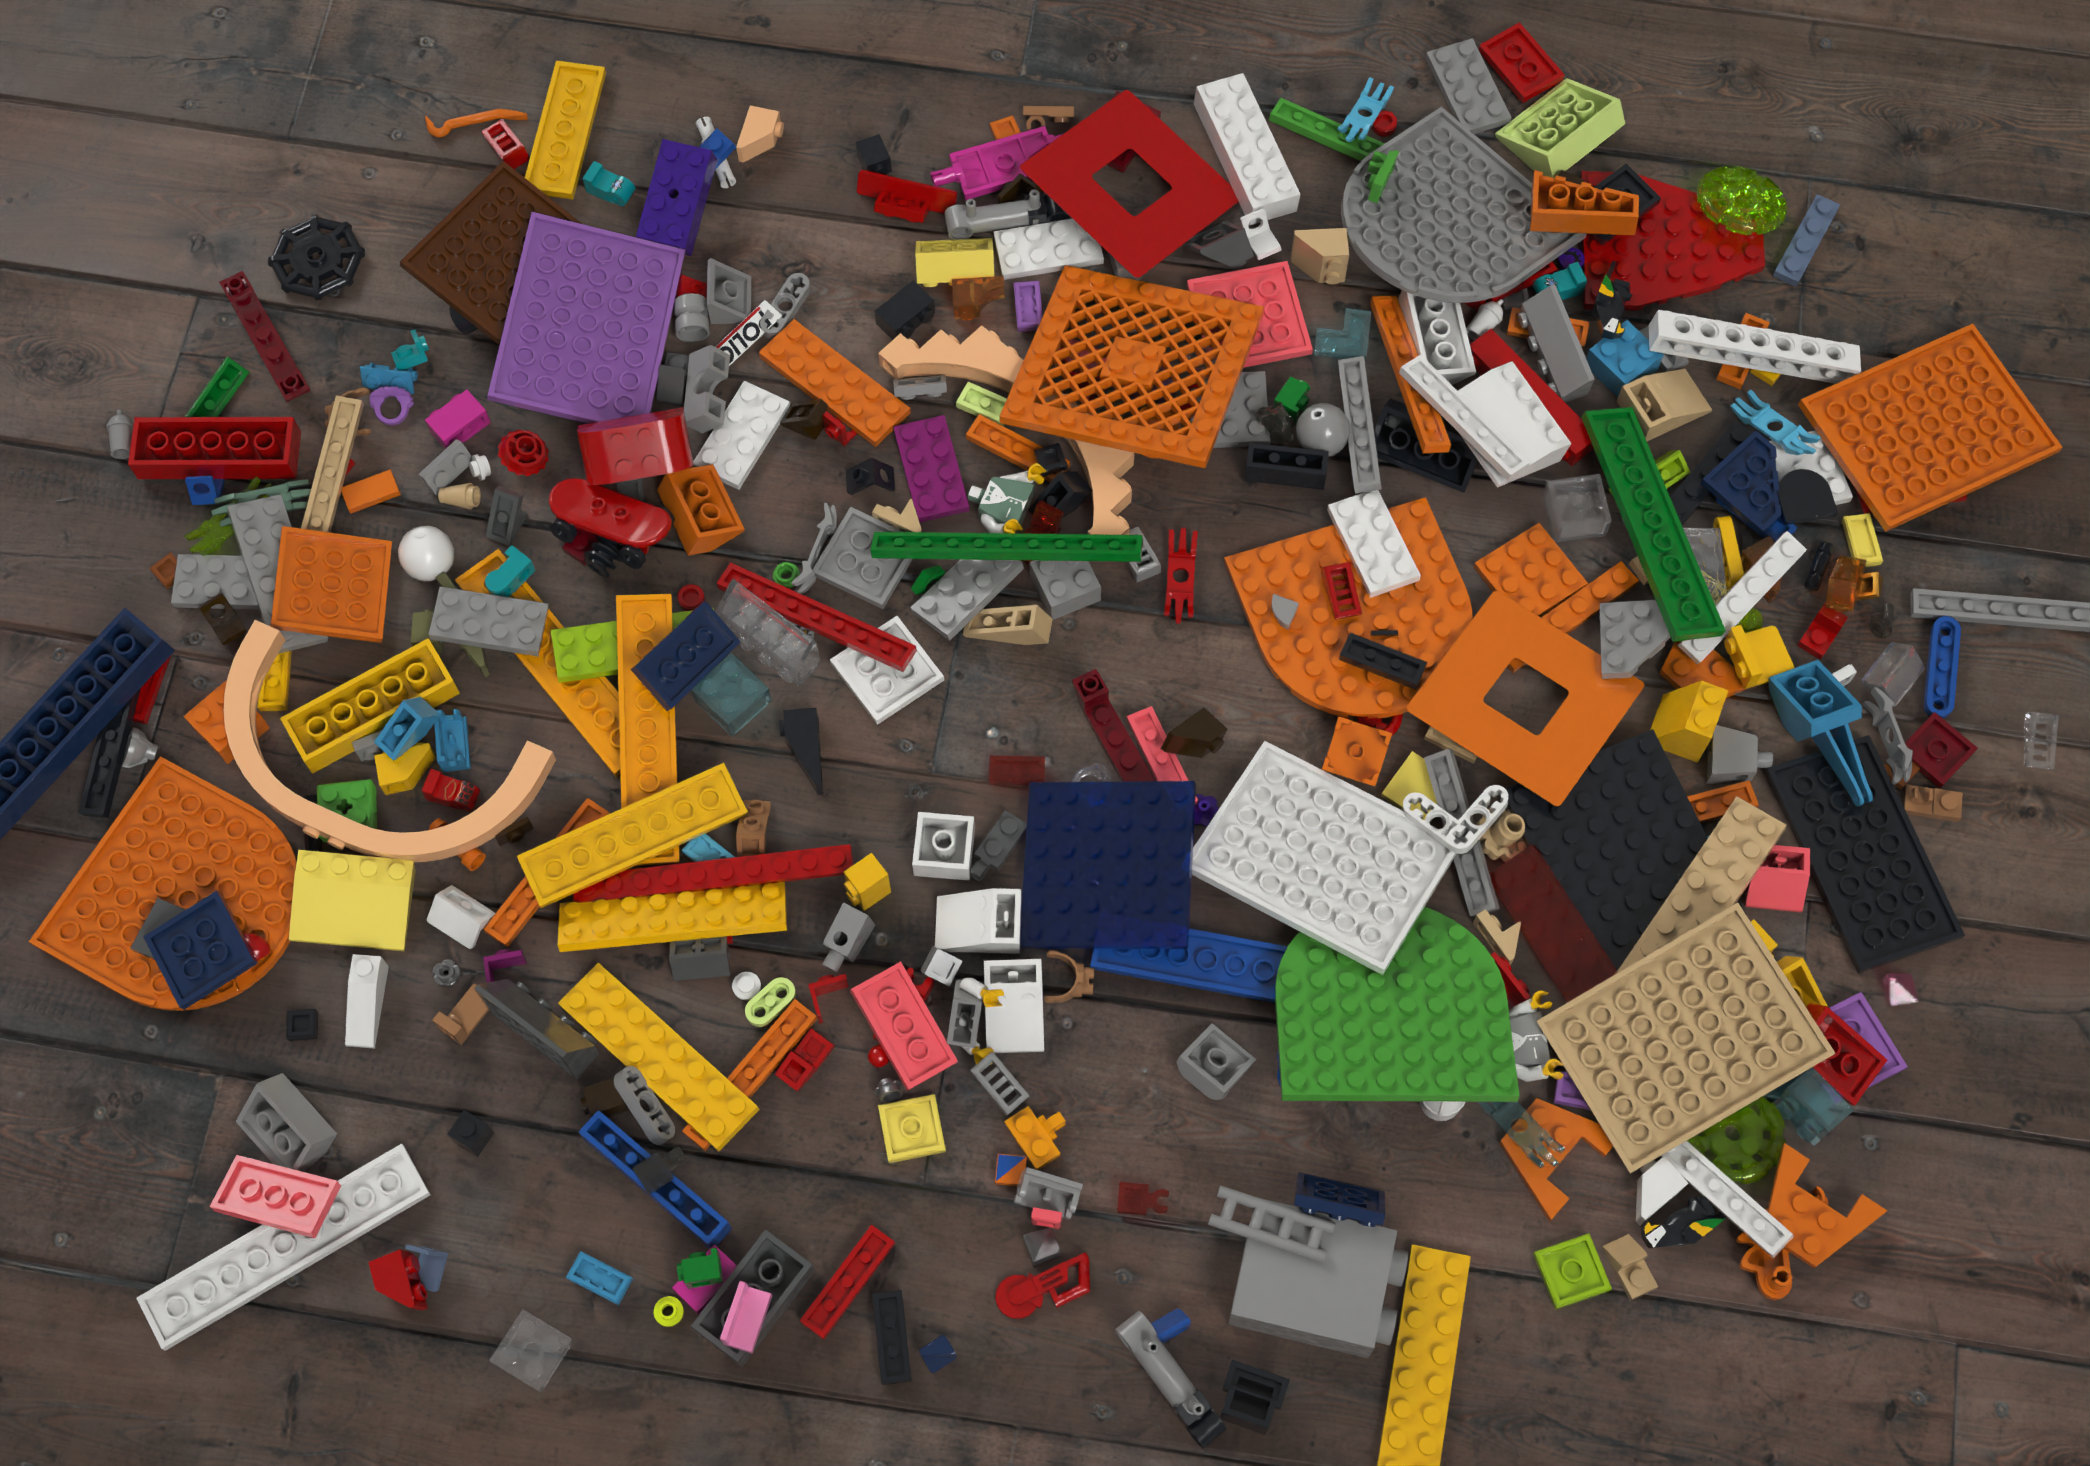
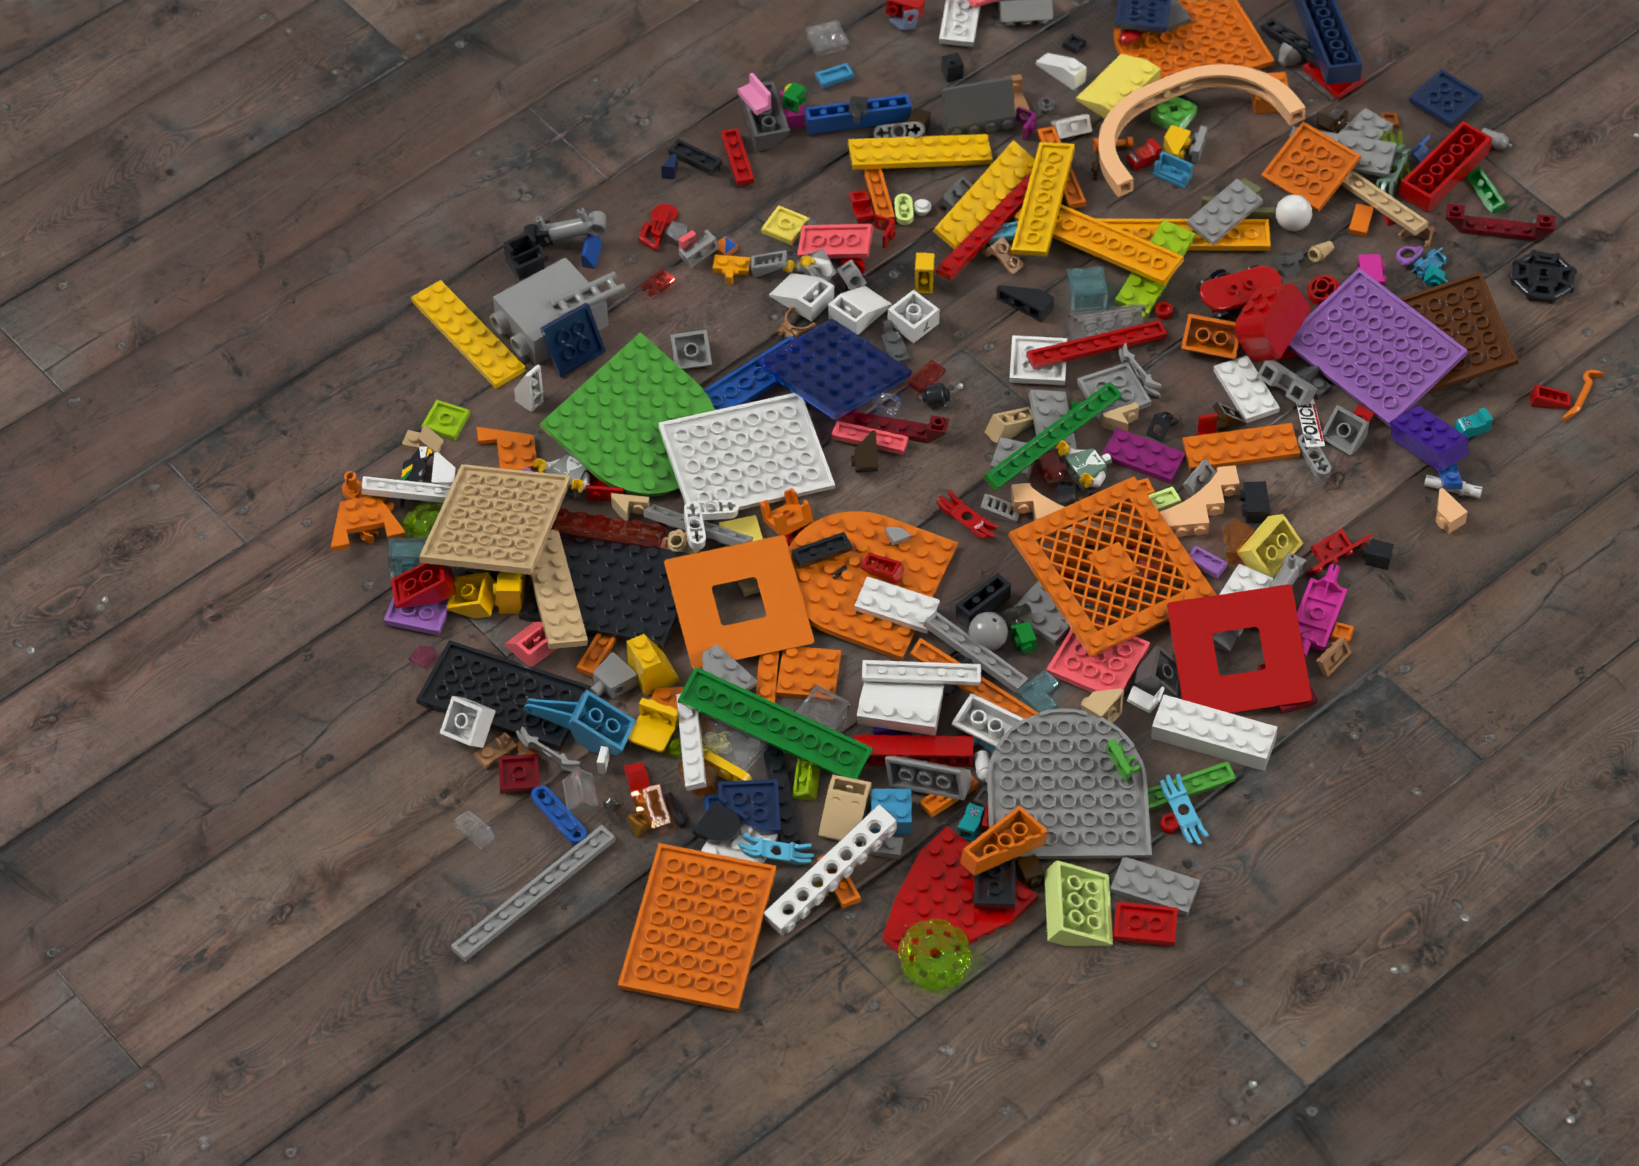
camera: 130 degrees right, 15 degrees down
(83, 530) = (1446, 98): none -> dark blue plate
(275, 686) = (1276, 125): yellow tile -> none
(365, 704) = (1222, 145): yellow brick -> none
(406, 727) = (1191, 146): dark azure slope -> none
(446, 467) = (1344, 253): light grey plate -> none
(479, 467) = (1331, 268): white plate -> none
(510, 574) = (1245, 237): teal leg -> none
(565, 128) = (1535, 428): yellow plate -> none
(685, 656) = (1121, 268): dark blue plate -> none
(691, 318) = (1339, 398): light grey wheel -> none
(782, 569) = (1140, 354): bright green plate -> none
(848, 925) = (904, 247): light grey torso -> none
(1038, 734) = (936, 395): none -> black head
(1205, 815) = (826, 441): dark purple plant -> none
(1454, 1190) = (530, 390): none -> white slope
(1529, 1139) = (518, 439): clear light blue piece -> none
(1611, 305) = (929, 820): black animal -> none
(1806, 240) = (878, 977): sand blue plate -> none
(1862, 538) = (663, 837): light yellow tile -> none
(1949, 838) = (467, 721): none -> white brick

